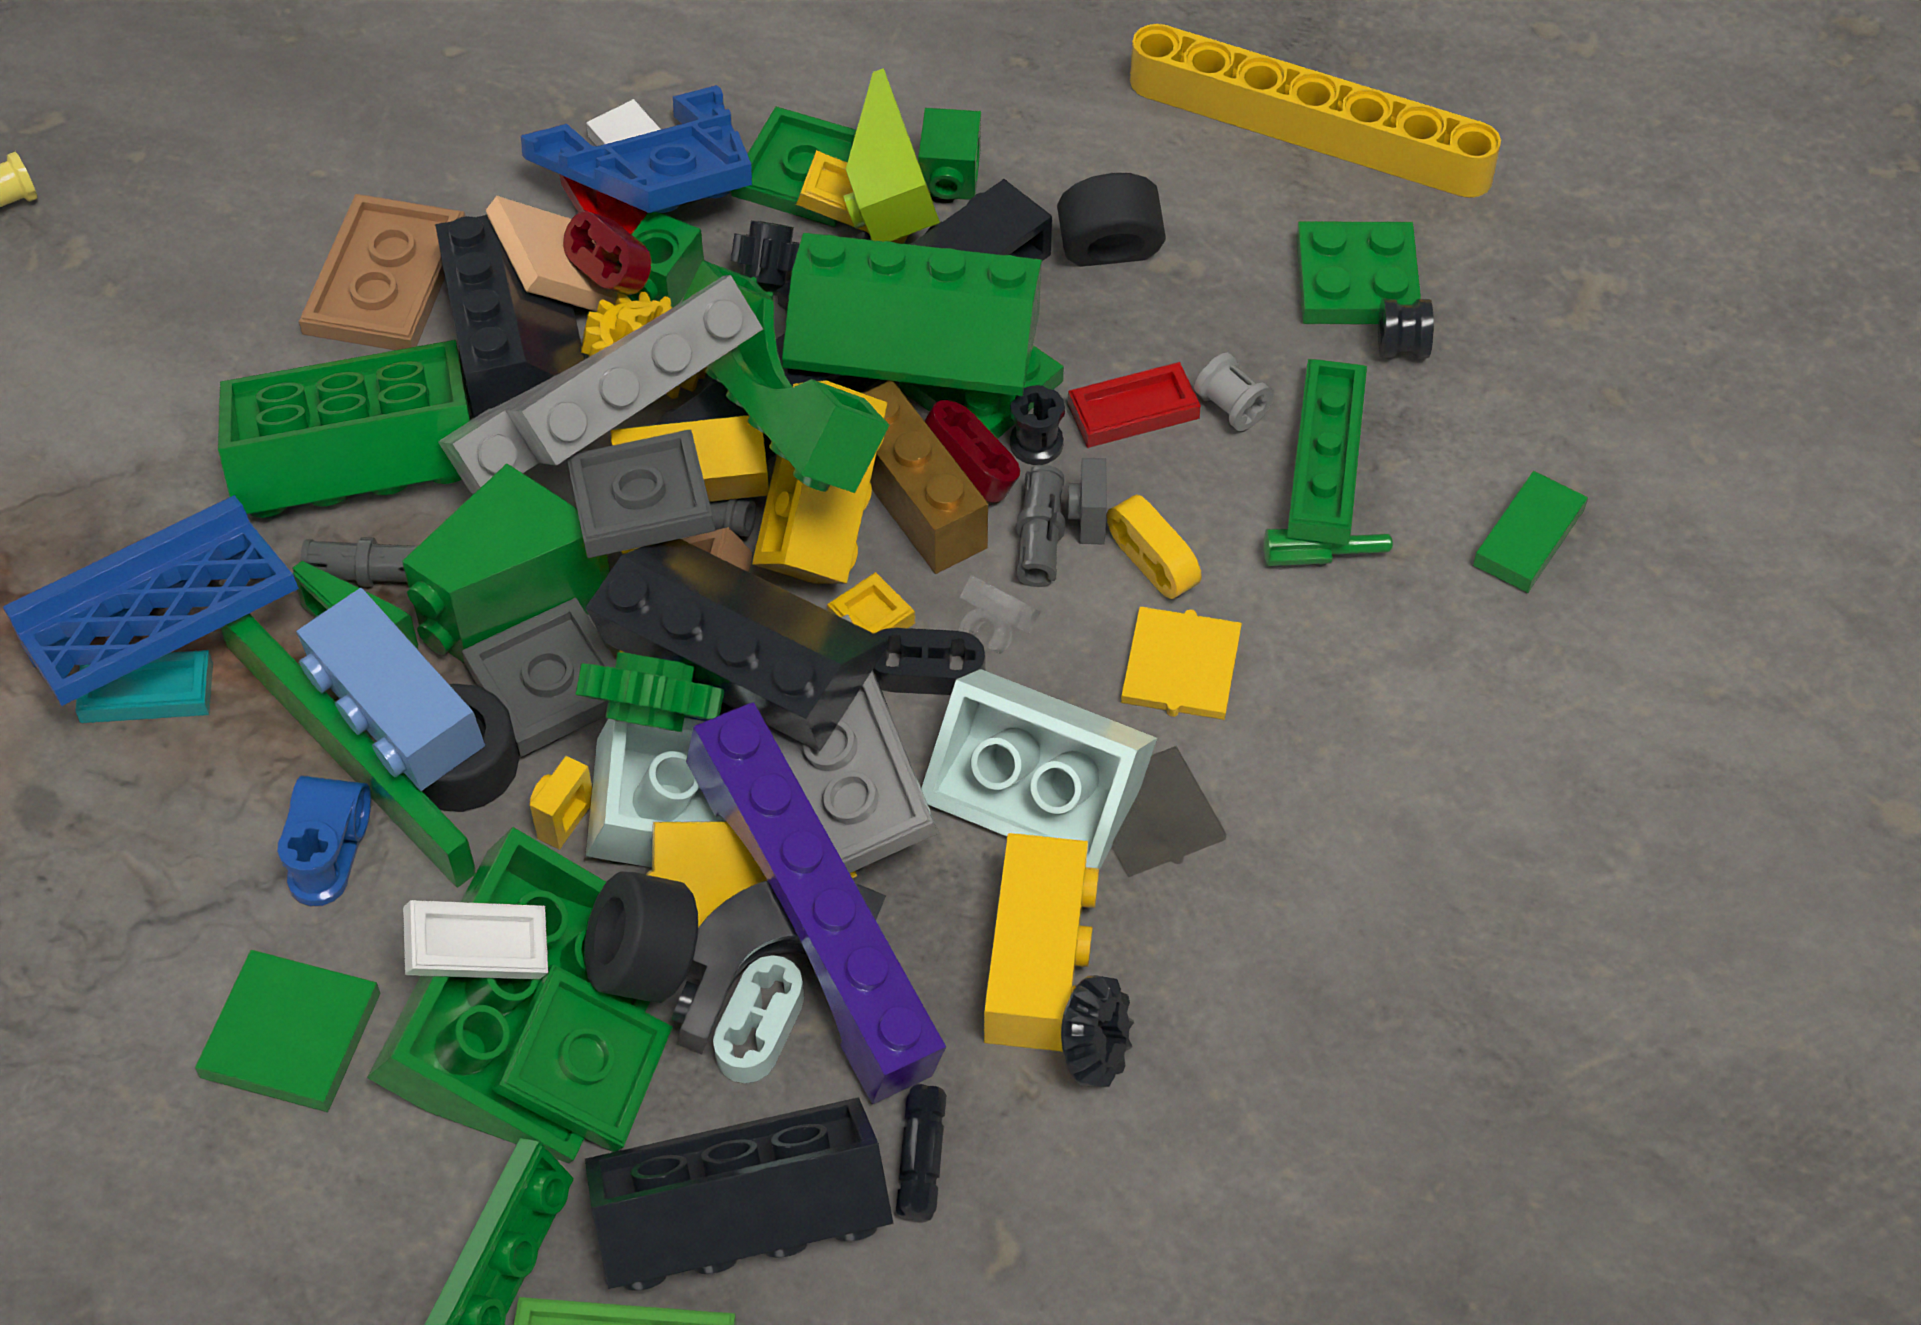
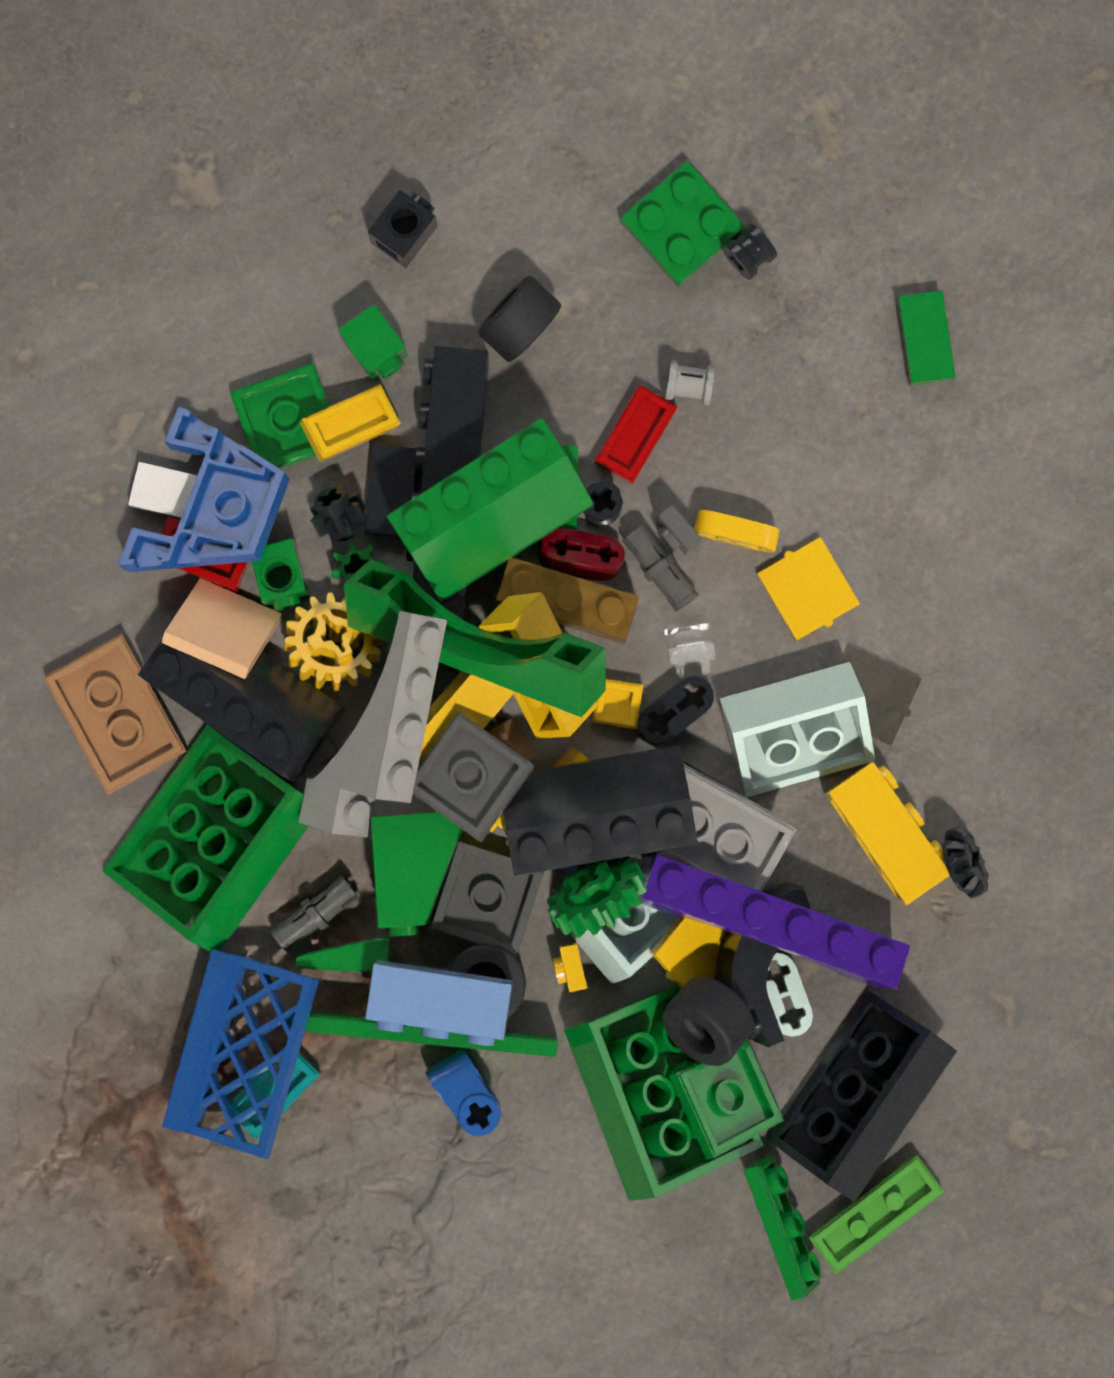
camera: 45 degrees left, 30 degrees up
(288, 1030) = (556, 1206): green tile -> none
(475, 940) = (634, 1101): white tile -> none
(601, 260) = (260, 608): dark red beam -> none
(885, 172) = (367, 405): lime slope -> none
(921, 1153) = (930, 997): black axle -> none
(1074, 92) = (399, 246): none -> black brick
(1291, 551) = (820, 450): green axle -> none
(1314, 110) = (571, 103): yellow beam -> none
(1327, 452) = (777, 381): green tile -> none

